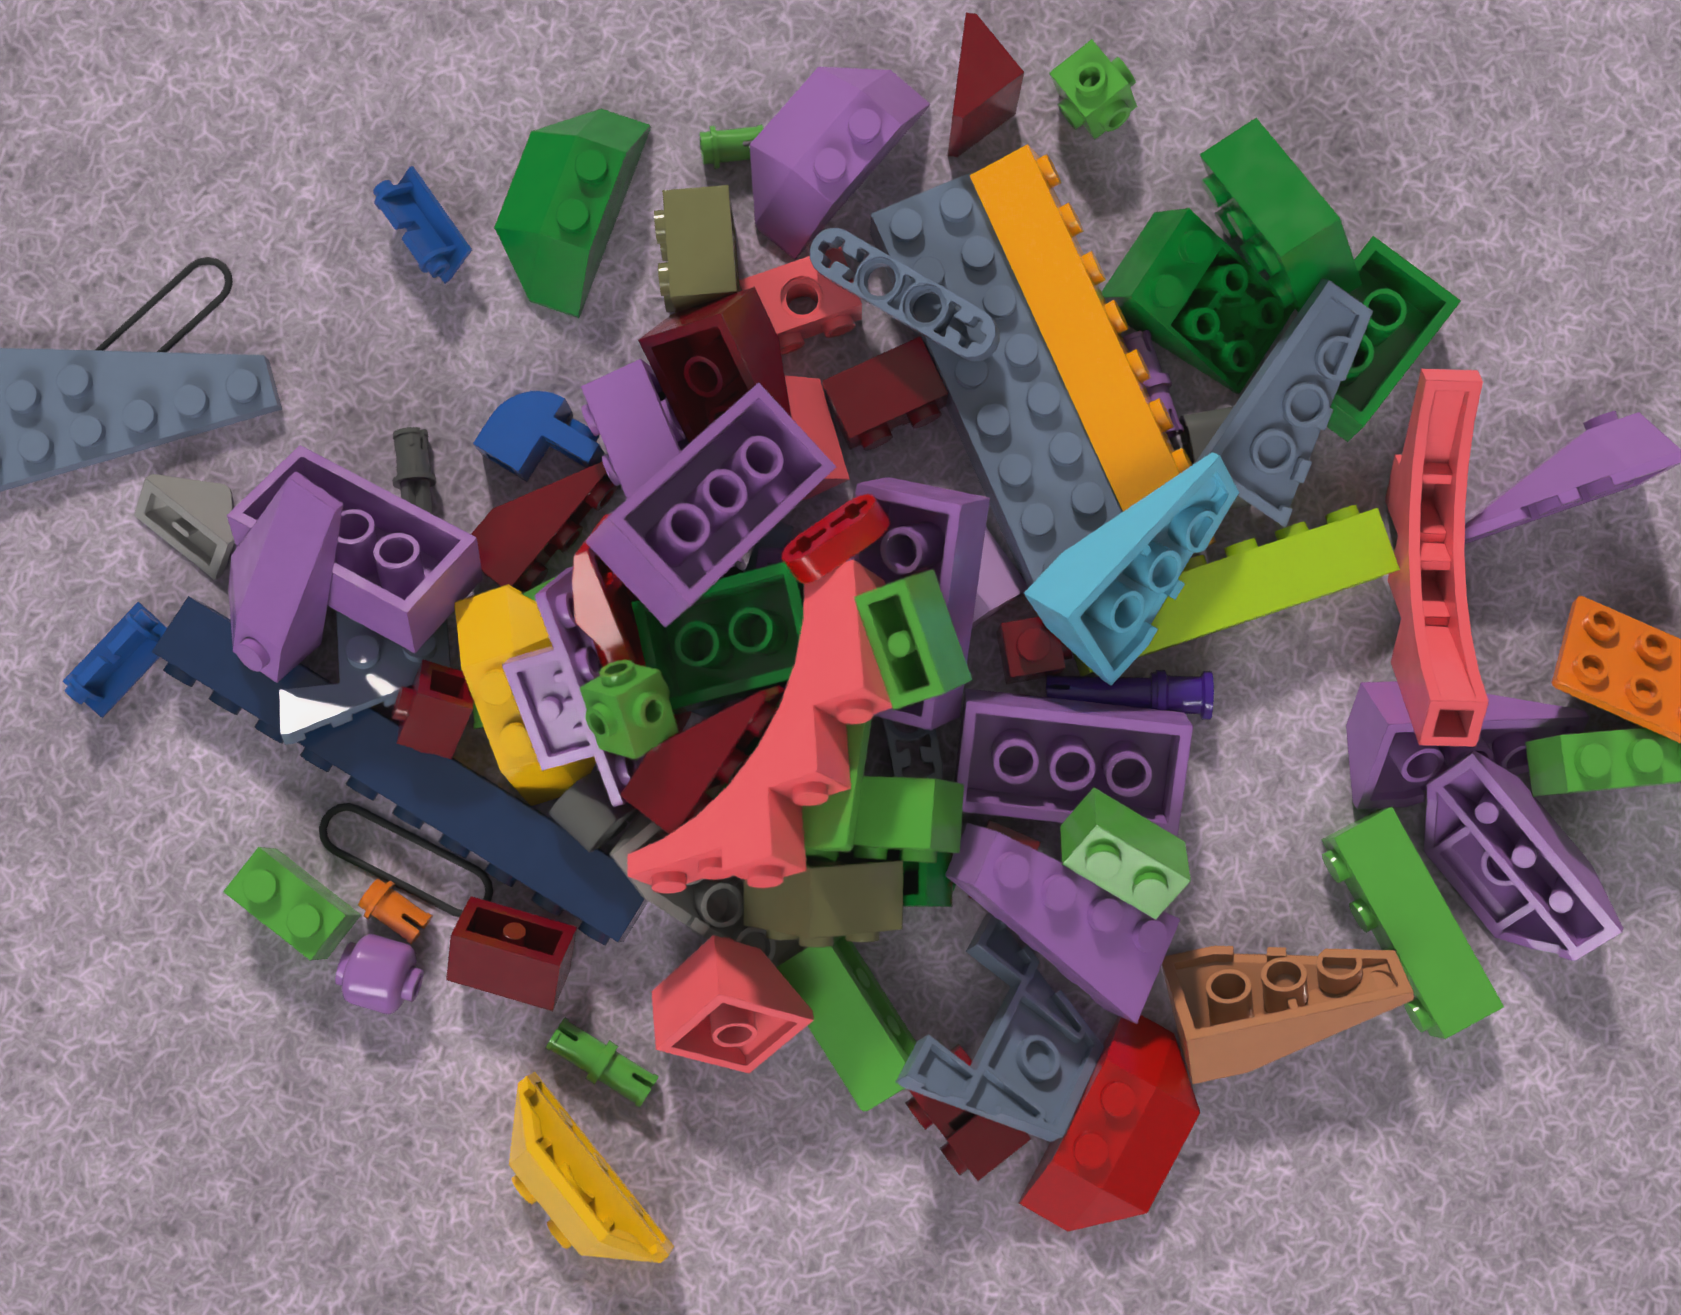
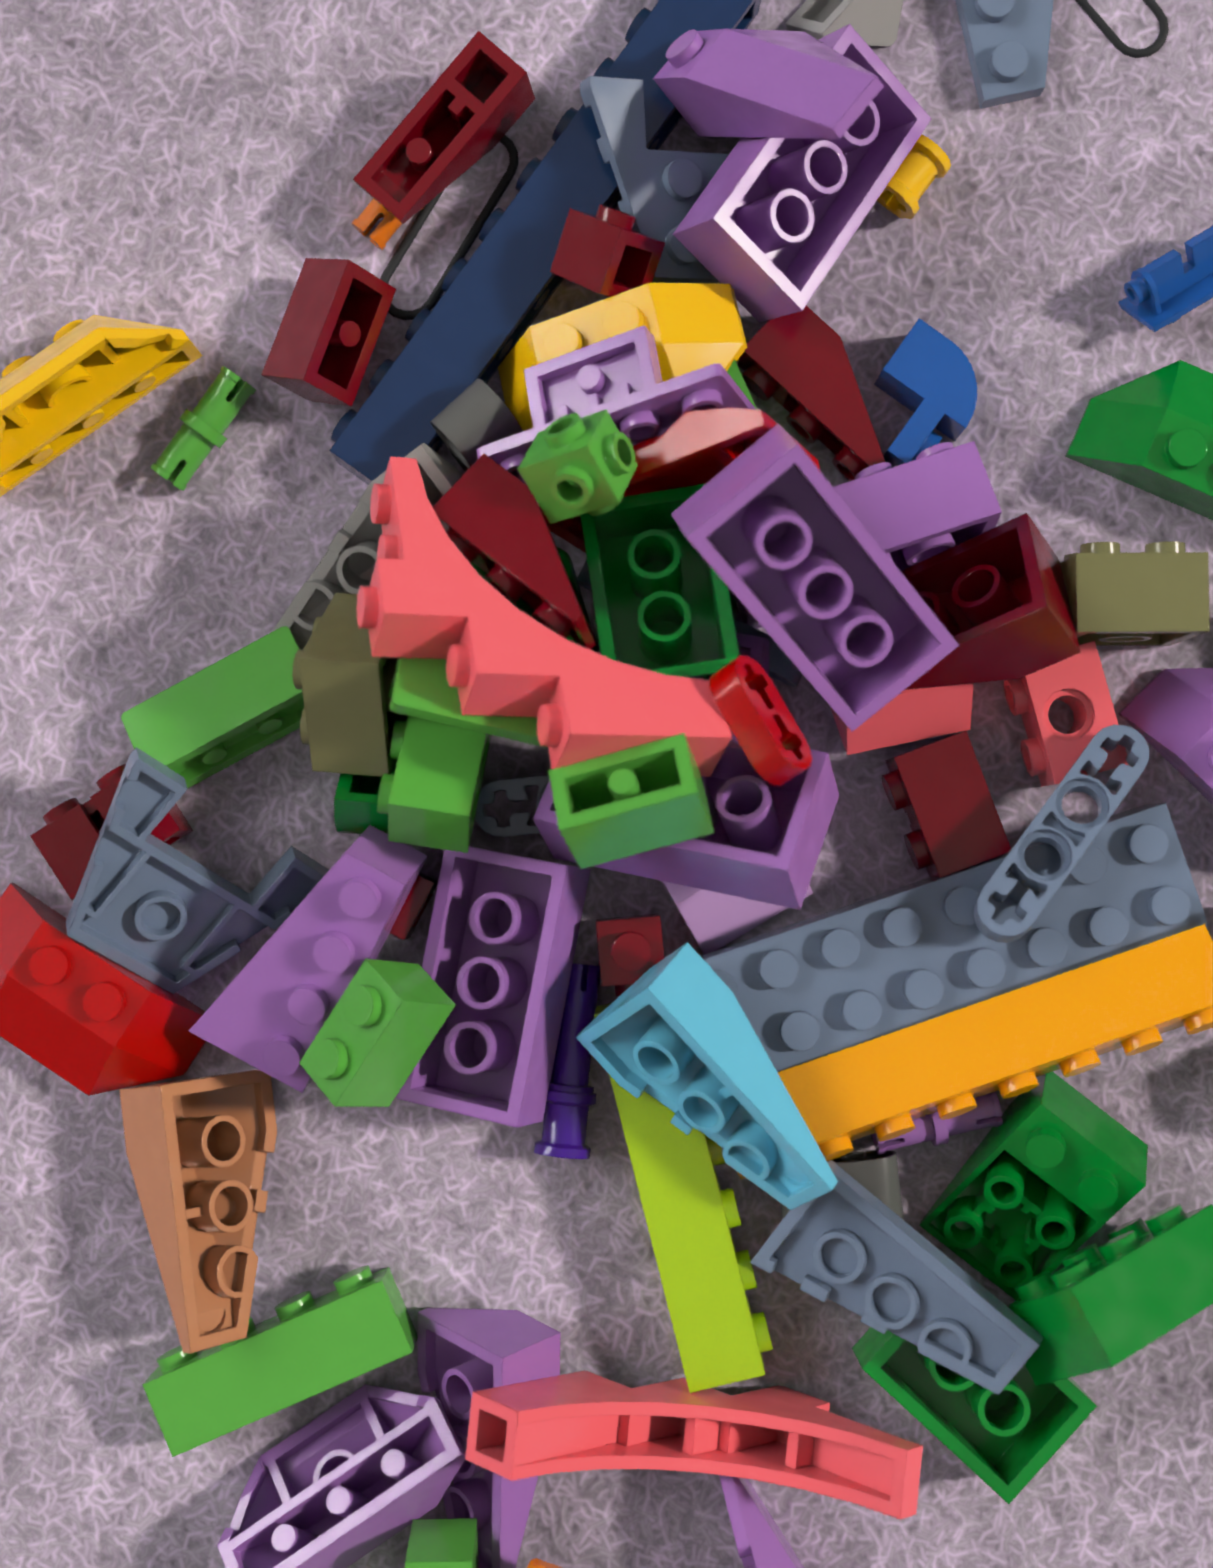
camera: 90 degrees right, 5 degrees up
(292, 903) = (396, 82): bright green brick -> none
(328, 862) = (448, 129): none -> dark red slope
(339, 451) = (913, 178): none -> yellow bush
(379, 974) = (319, 185): medium lavender head -> none
(413, 466) = (893, 253): dark grey axle -> none
(727, 1007) = (247, 567): coral slope -> none

